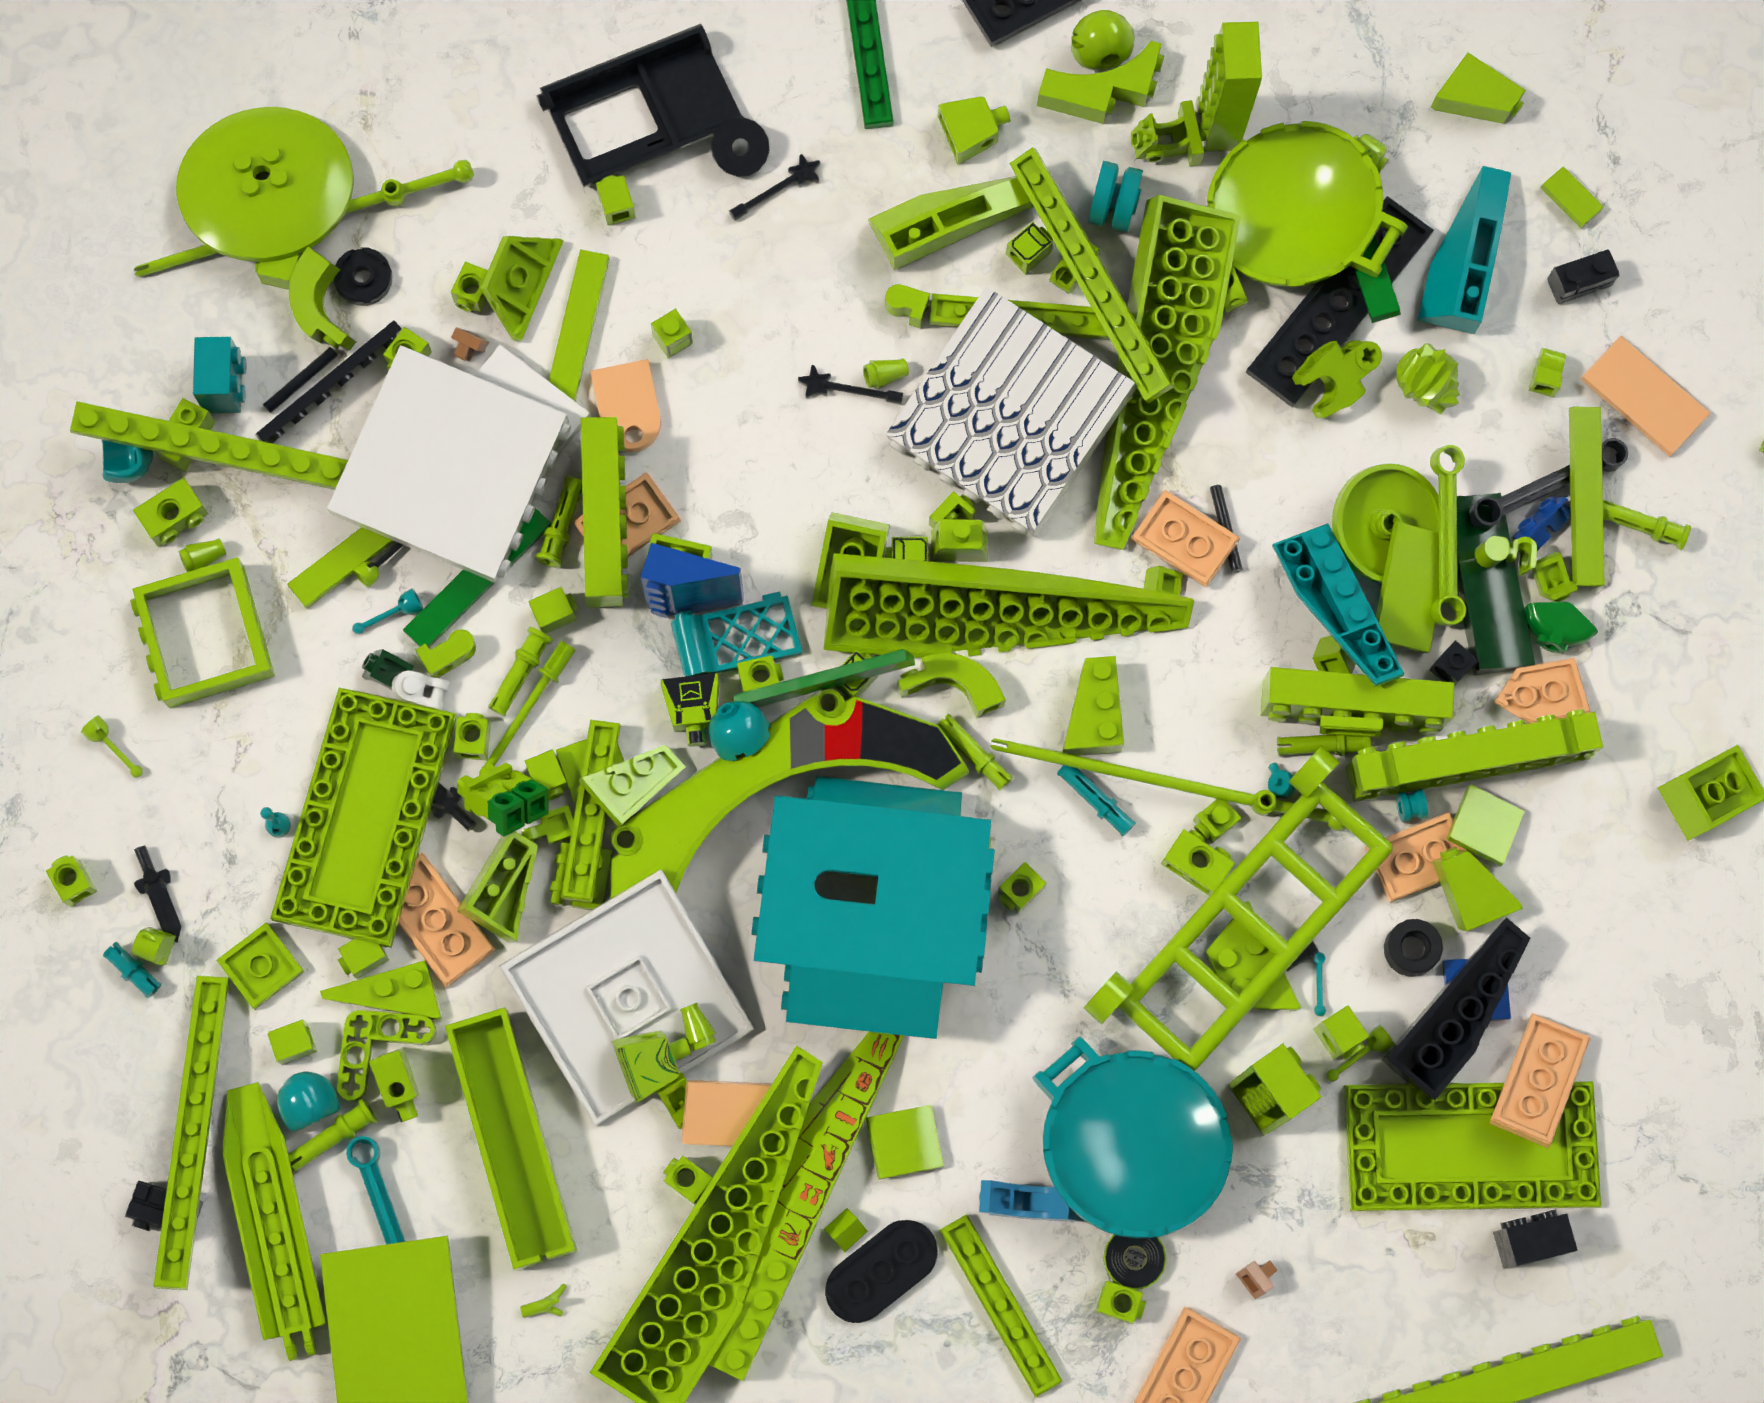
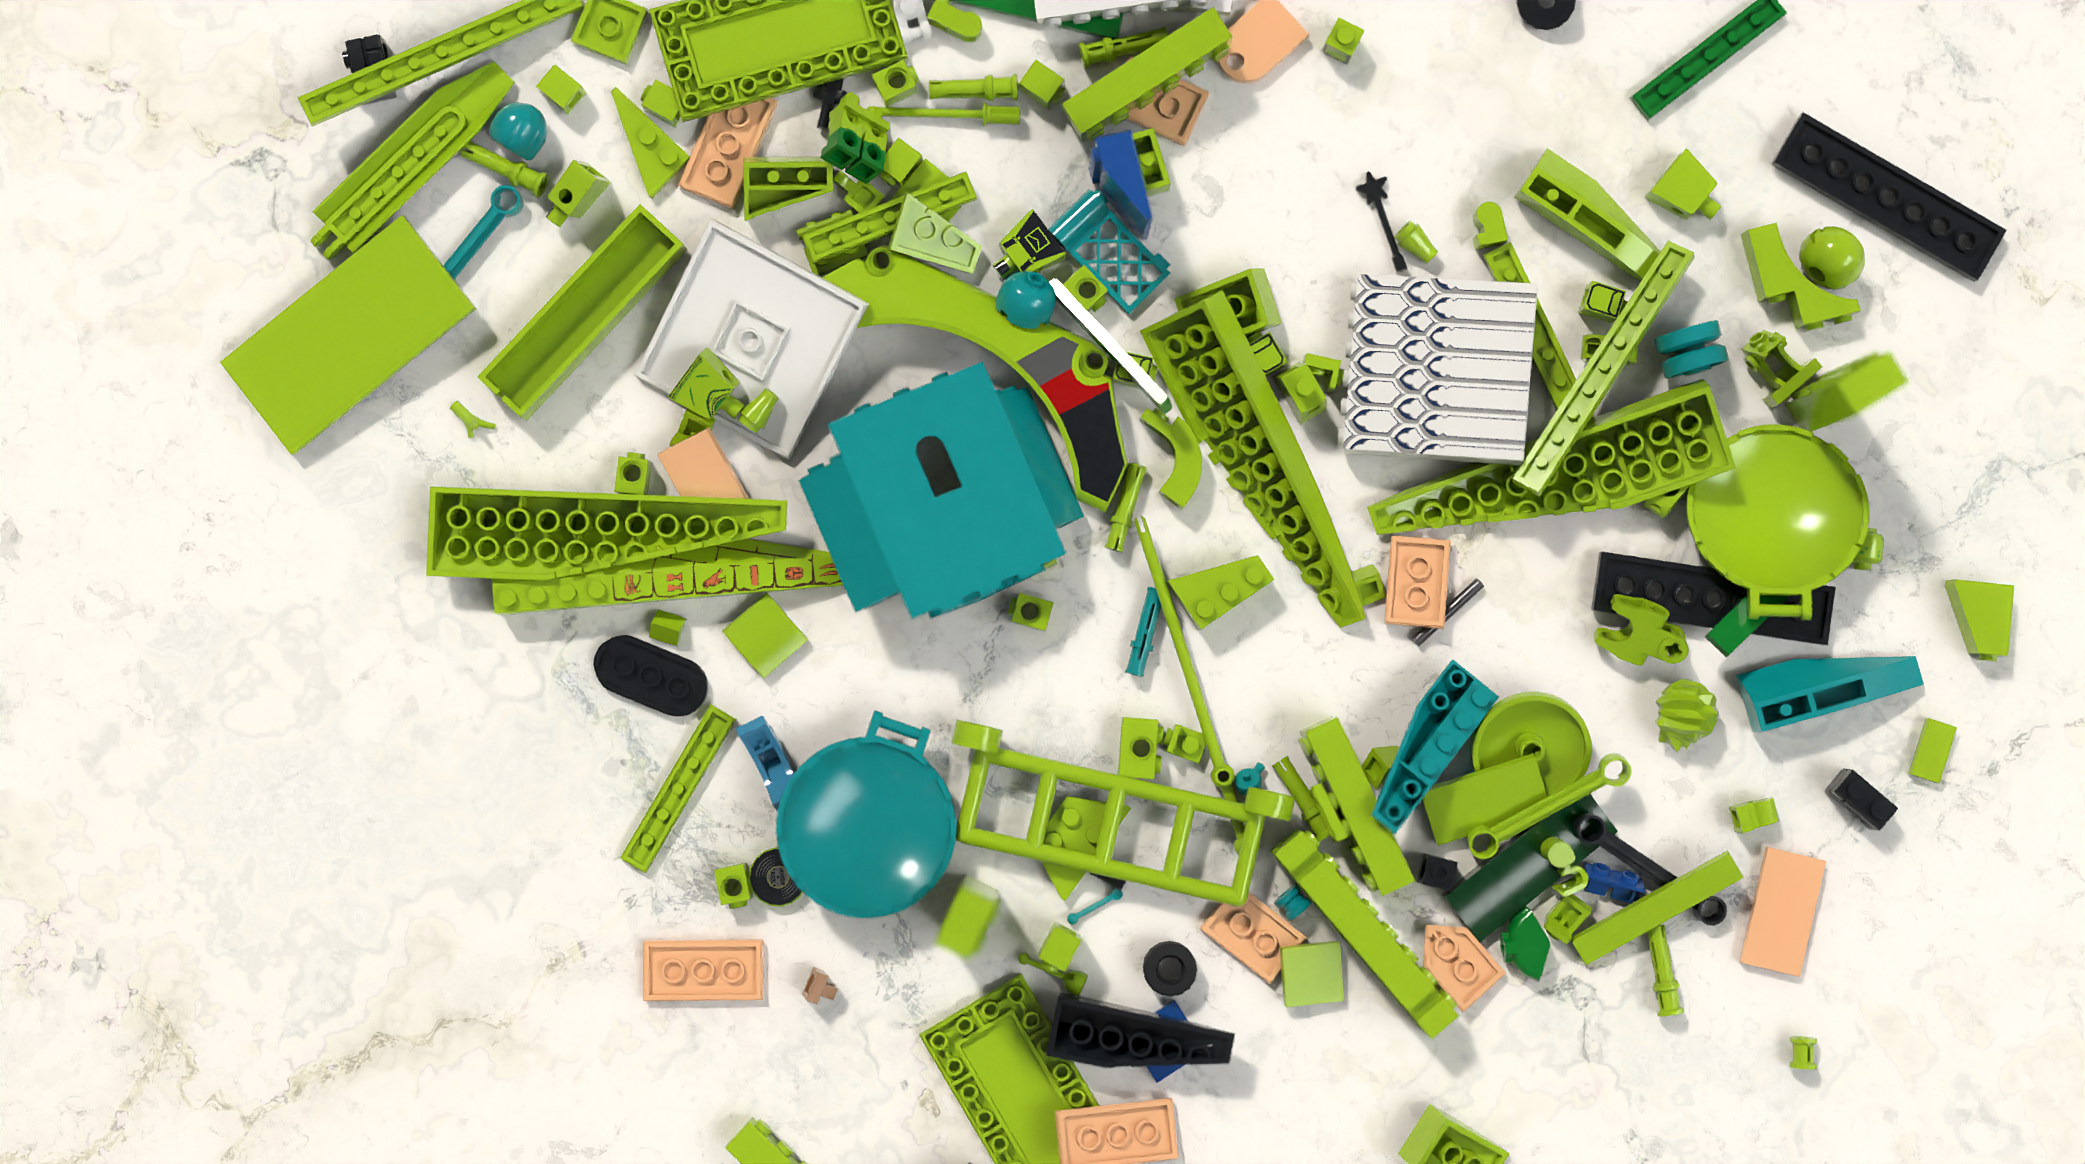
camera: 60 degrees right, 10 degrees up
(374, 1033) = (607, 150): lime beam -> none
(801, 172) = (1556, 66): black piece -> none
(1472, 890) = (1246, 992): lime slope -> none

